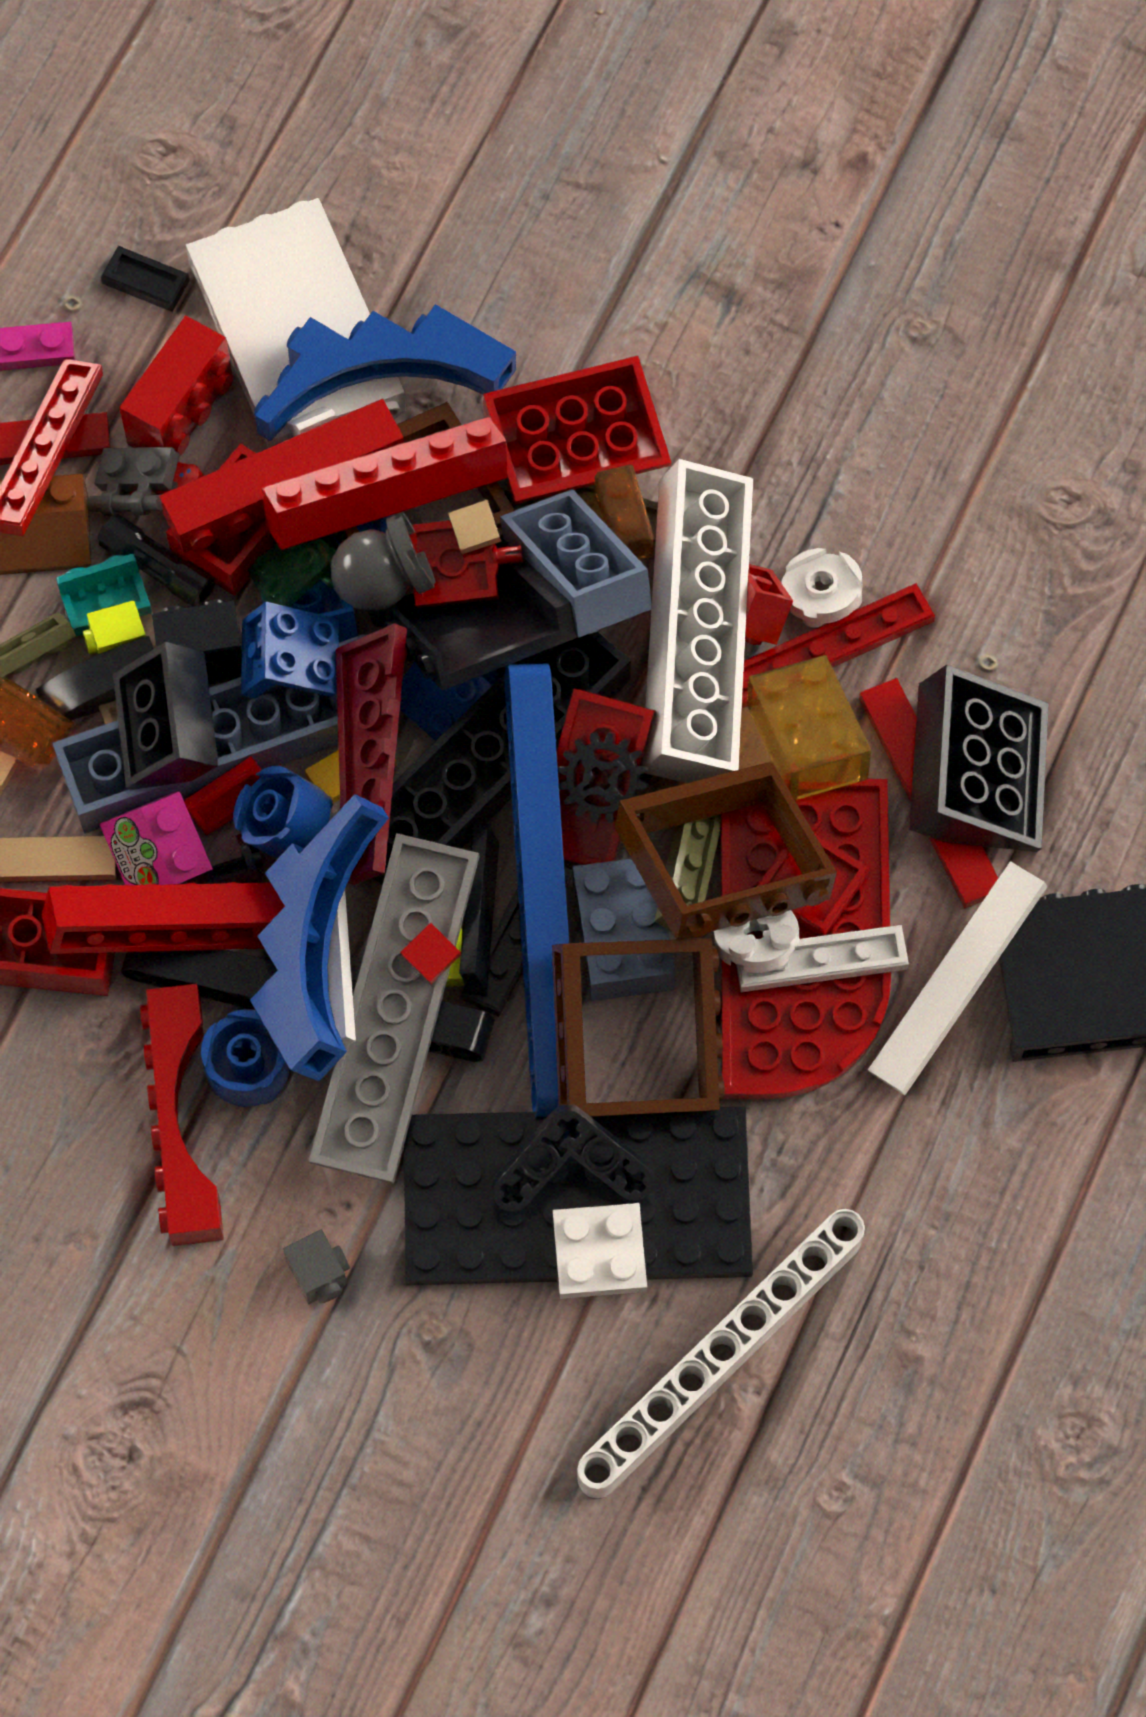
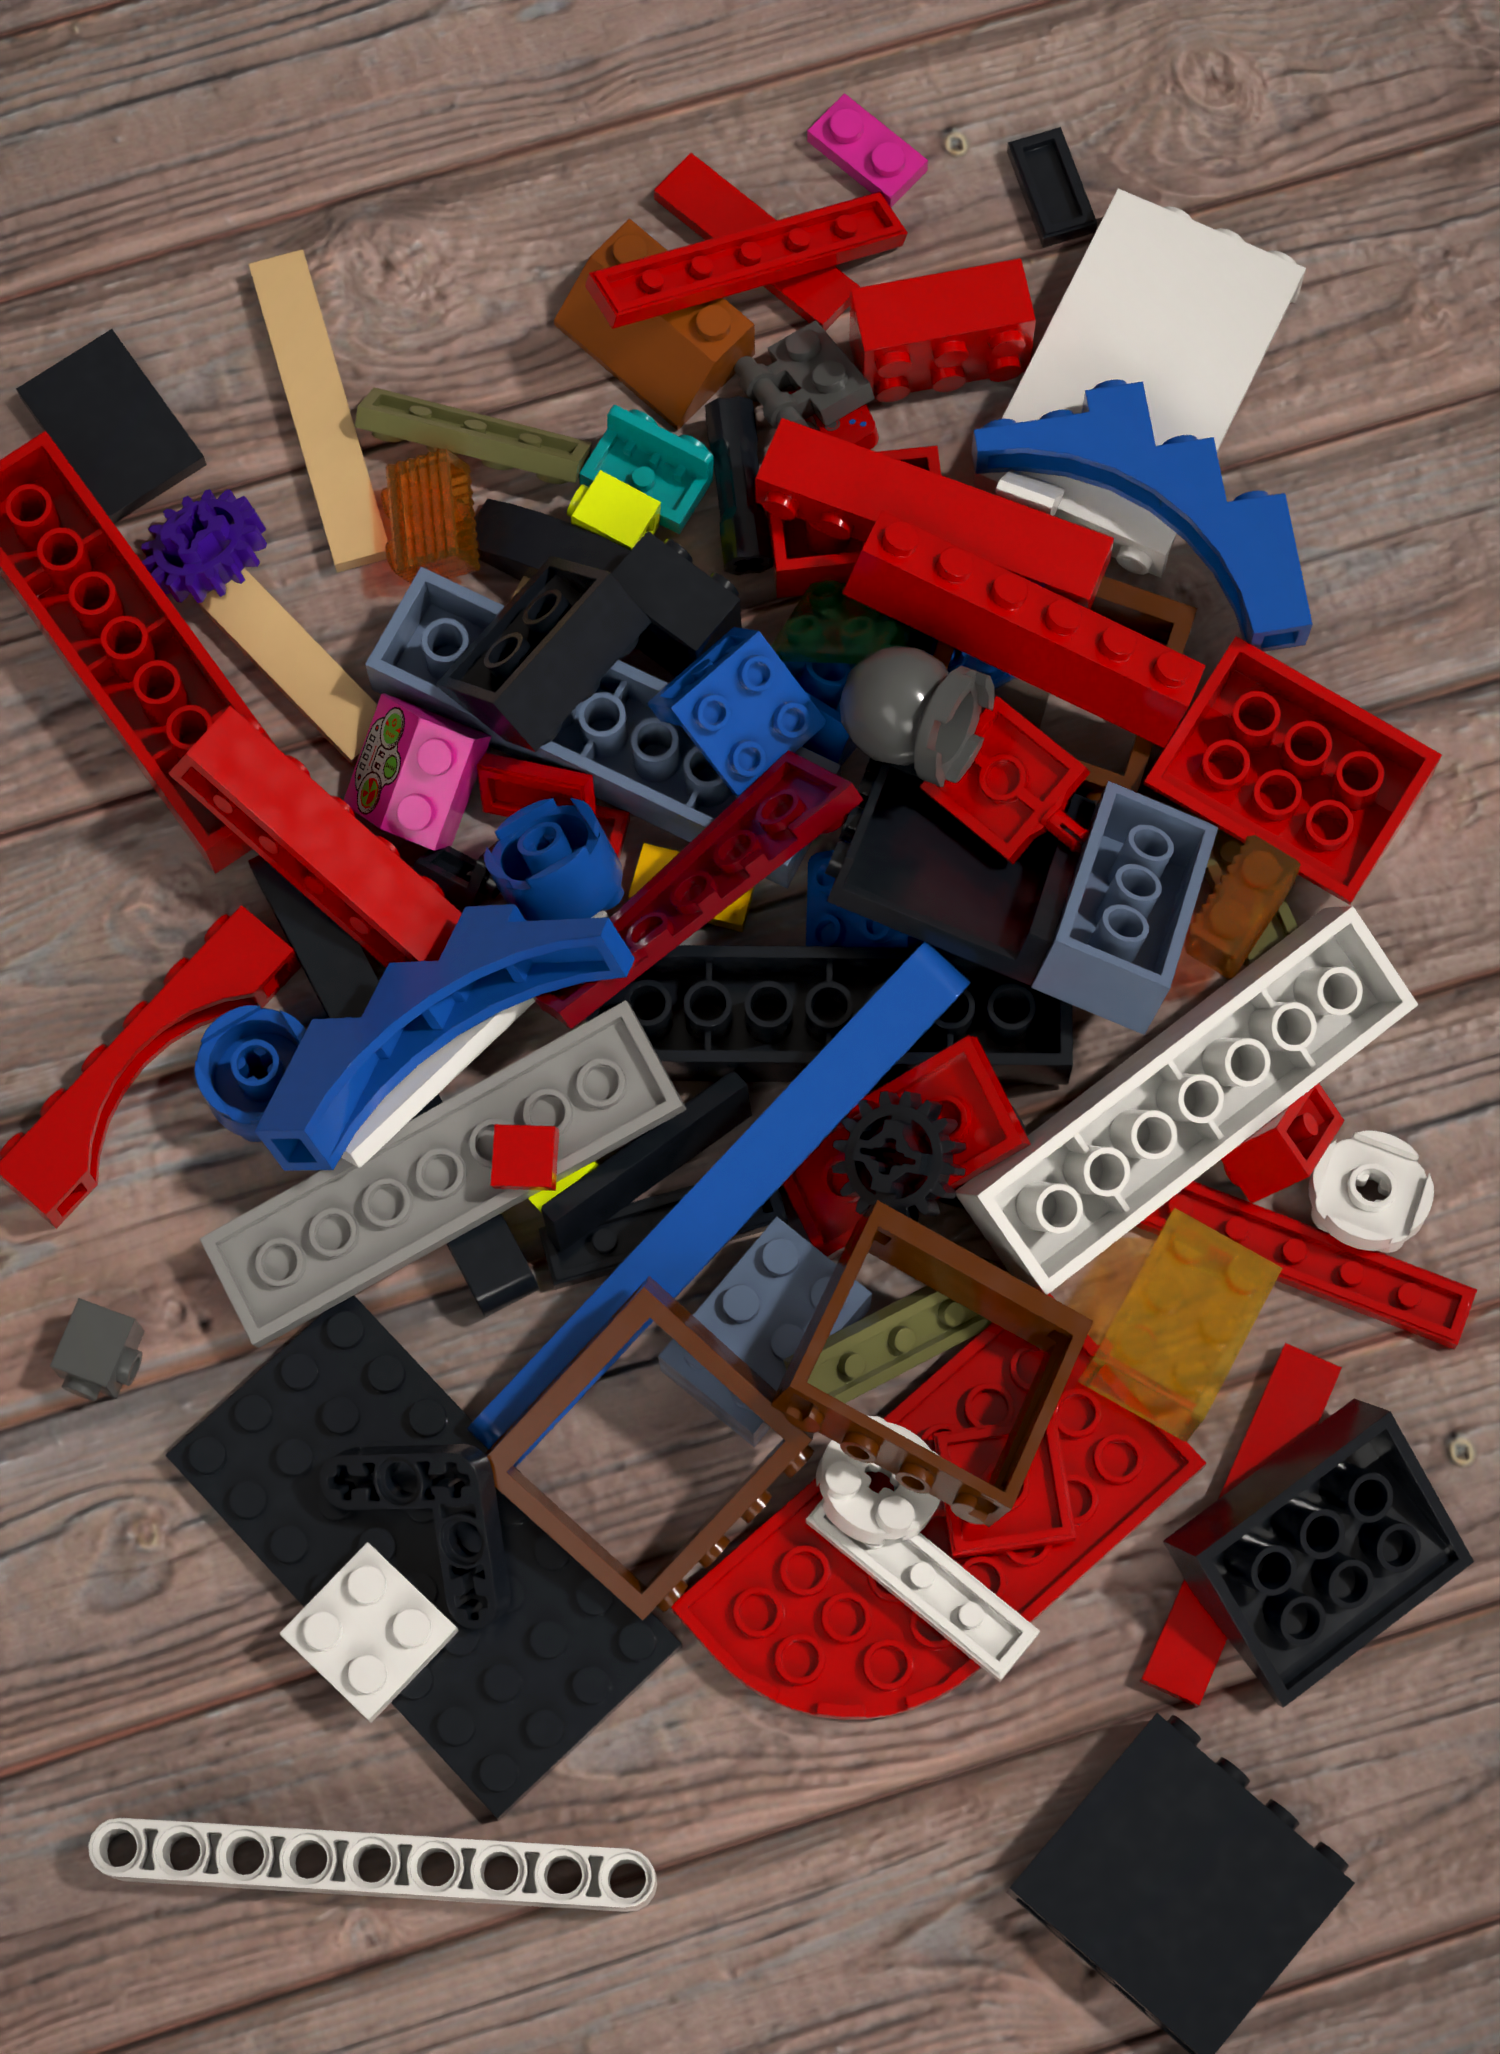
camera: 50 degrees right, 5 degrees up
(474, 527) = (1056, 765): tan tile -> none
(957, 978) = (1036, 1748): white tile -> none

